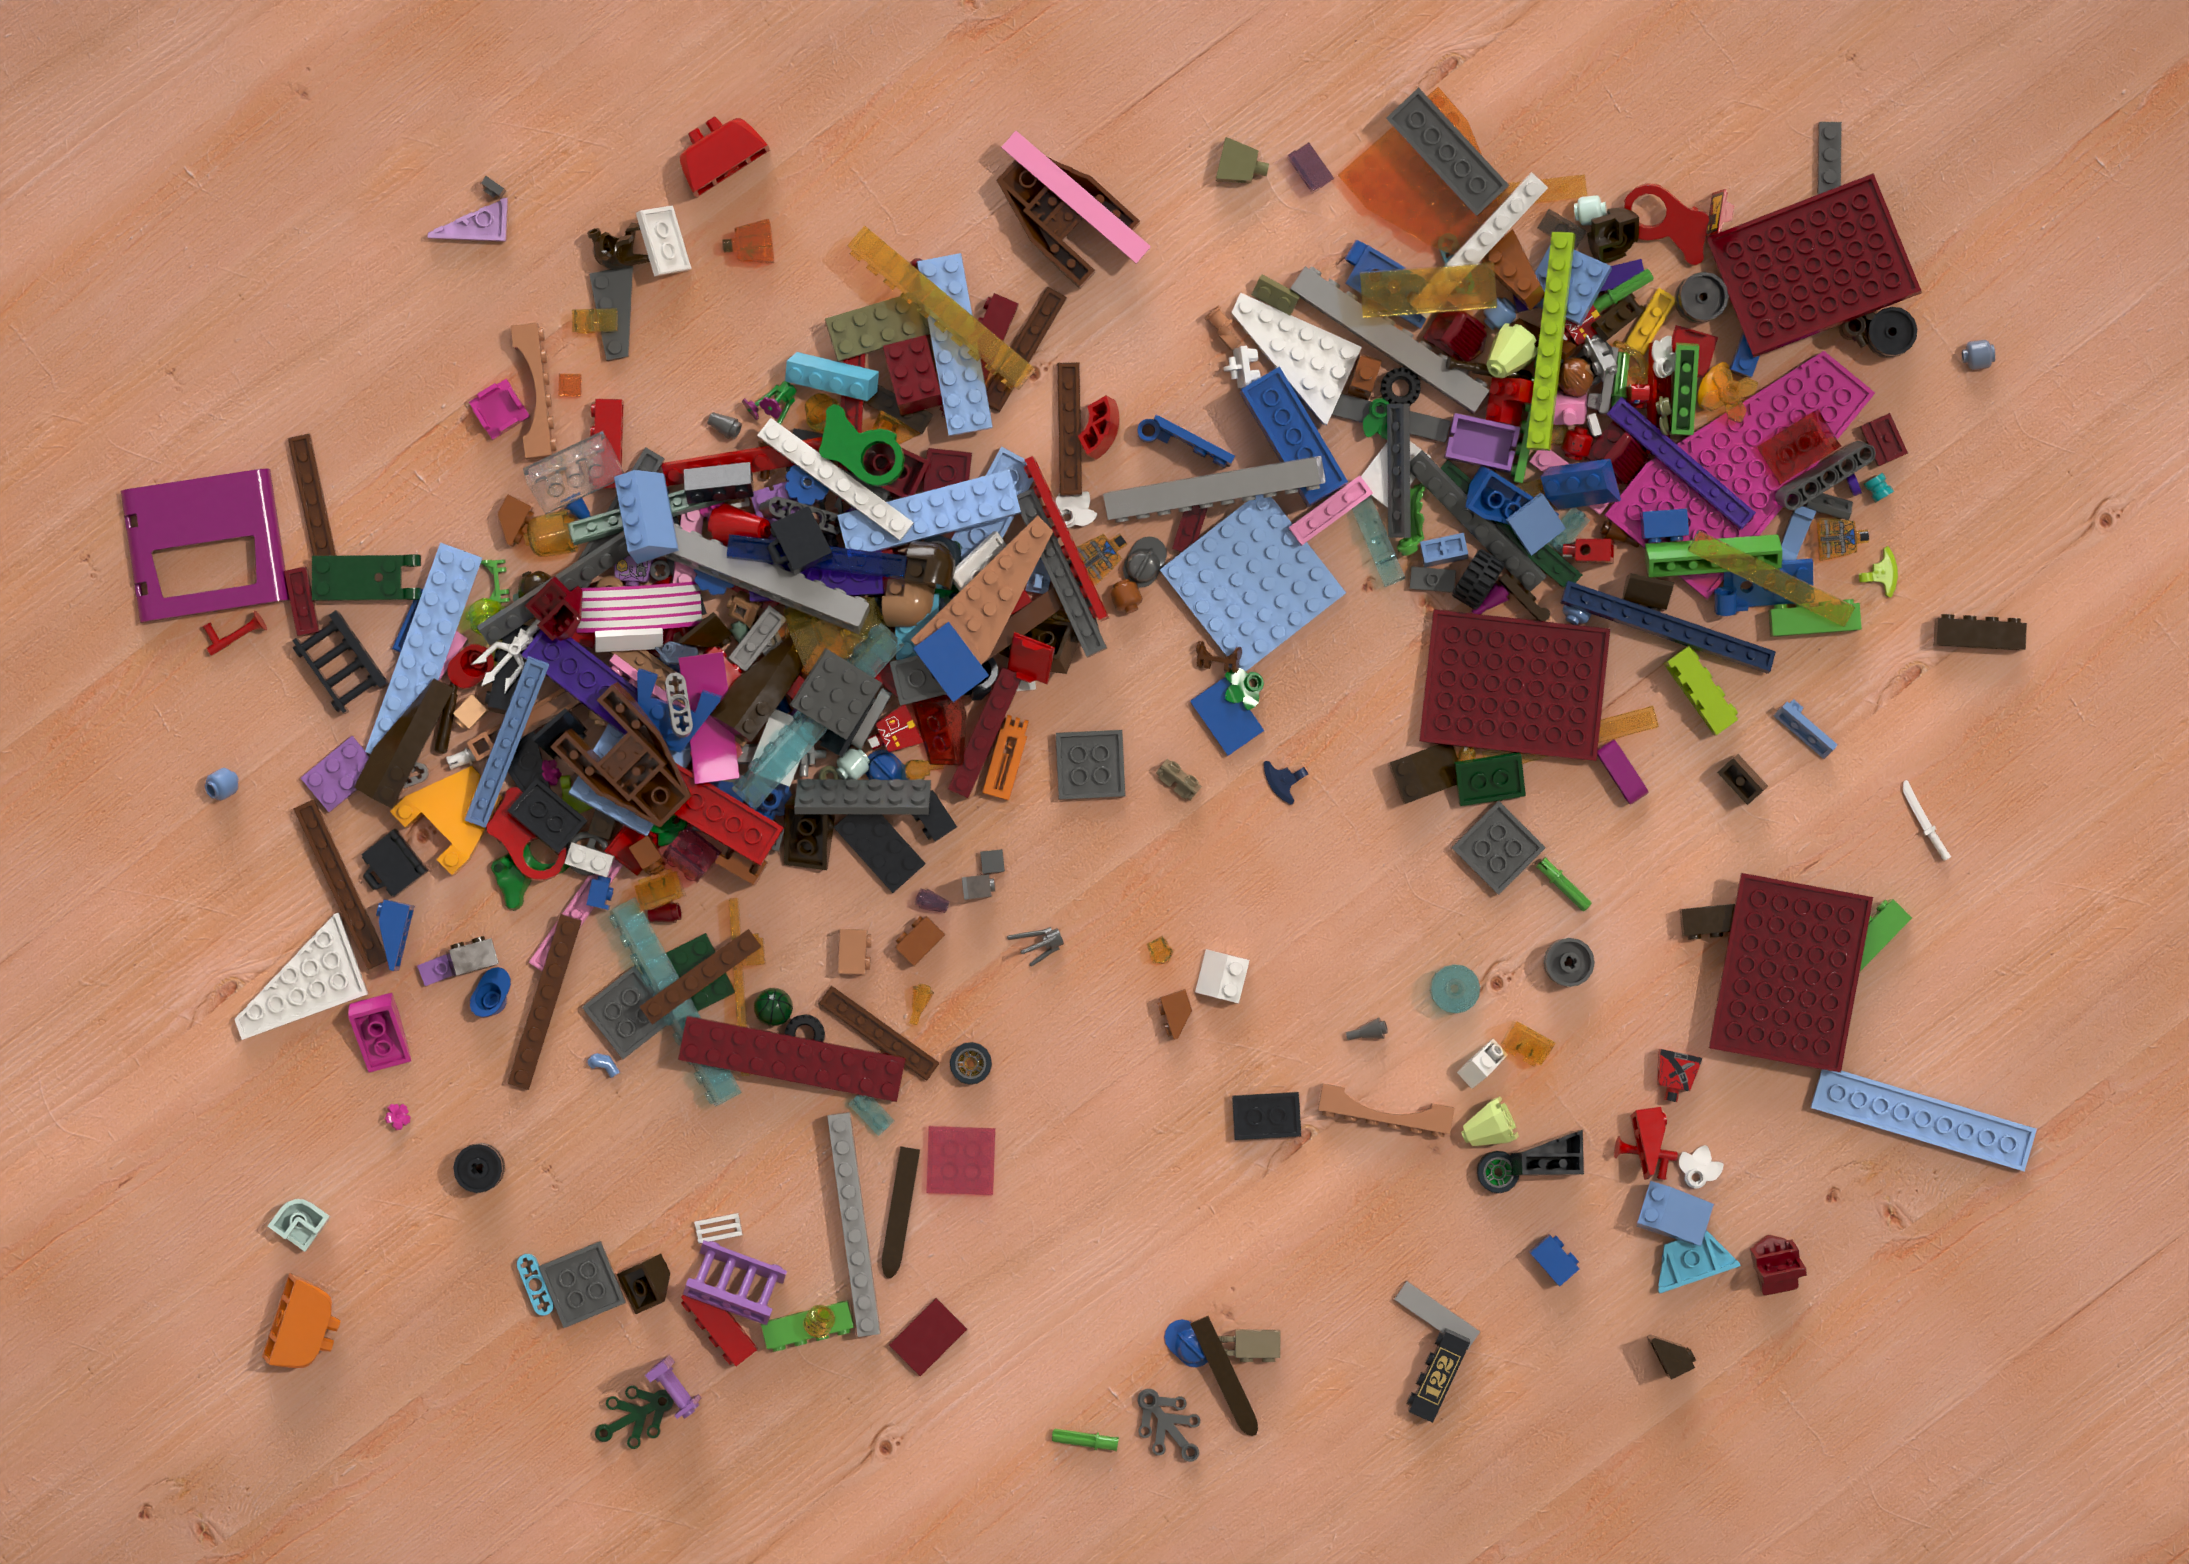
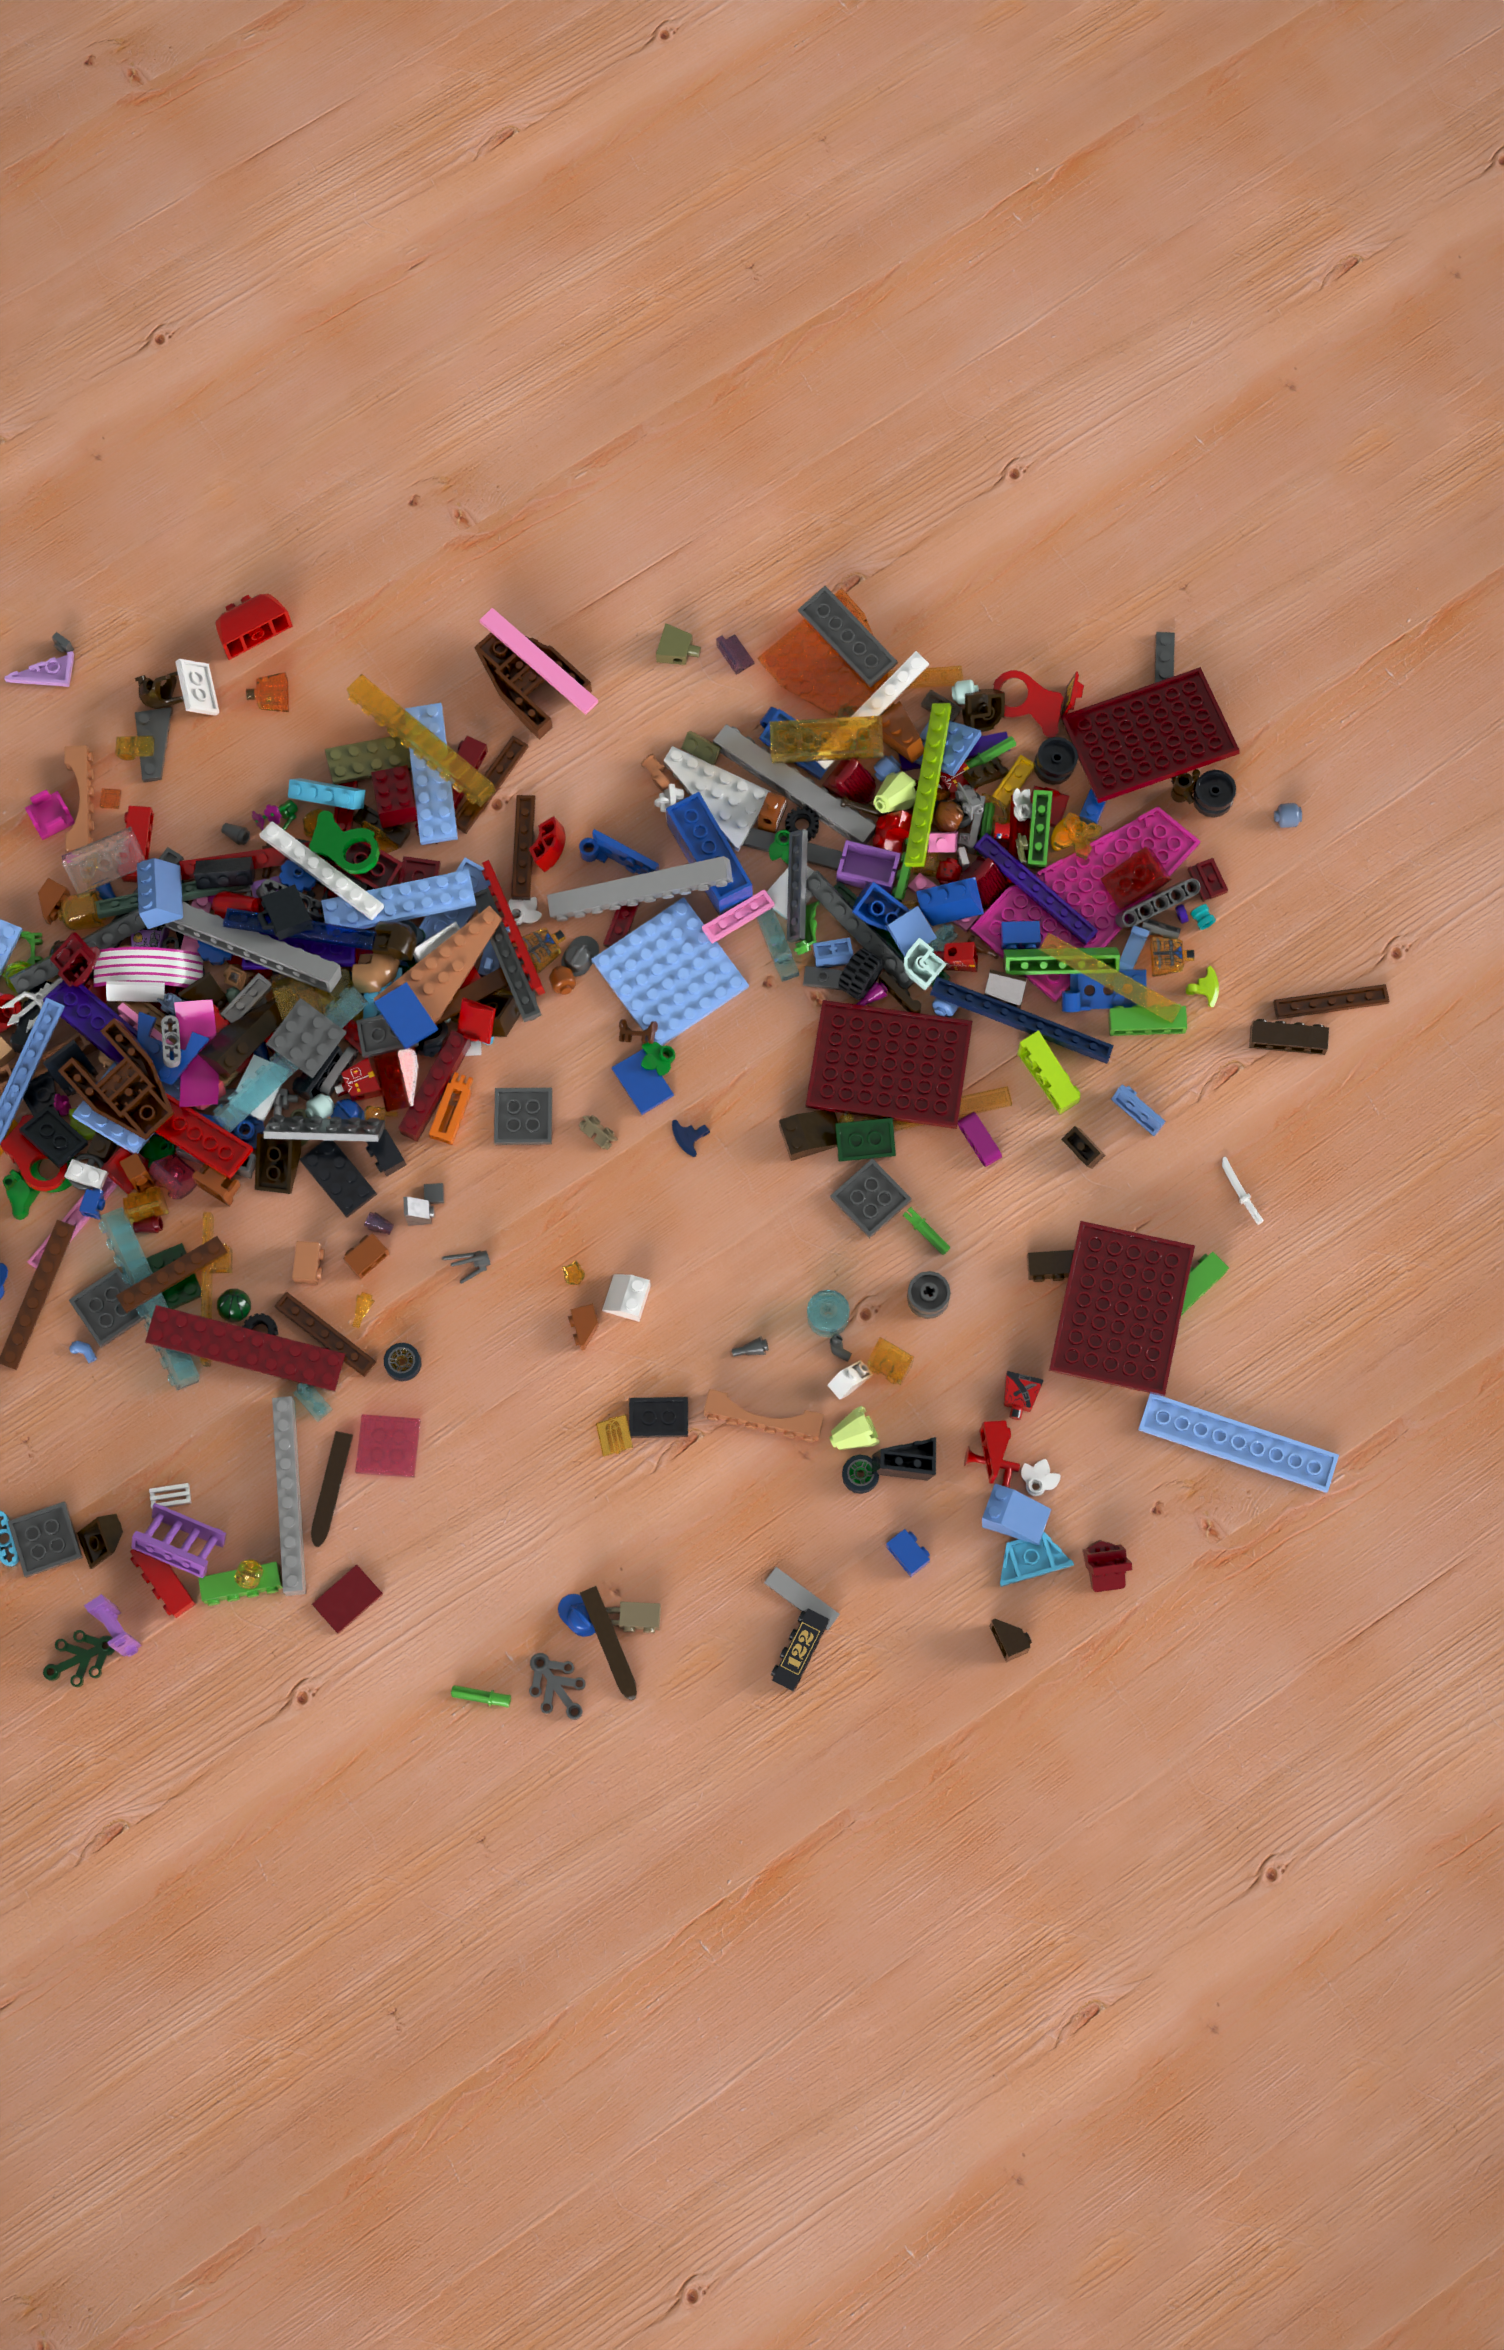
camera: 10 degrees right, 15 degrees down
(1217, 1139) = (614, 1435): none -> clear yellow piece
(1466, 1026) = (837, 1348): none -> dark grey arm
(1551, 567) = (922, 964): none -> light aqua brick
(2029, 585) = (1331, 1001): none -> reddish brown tile

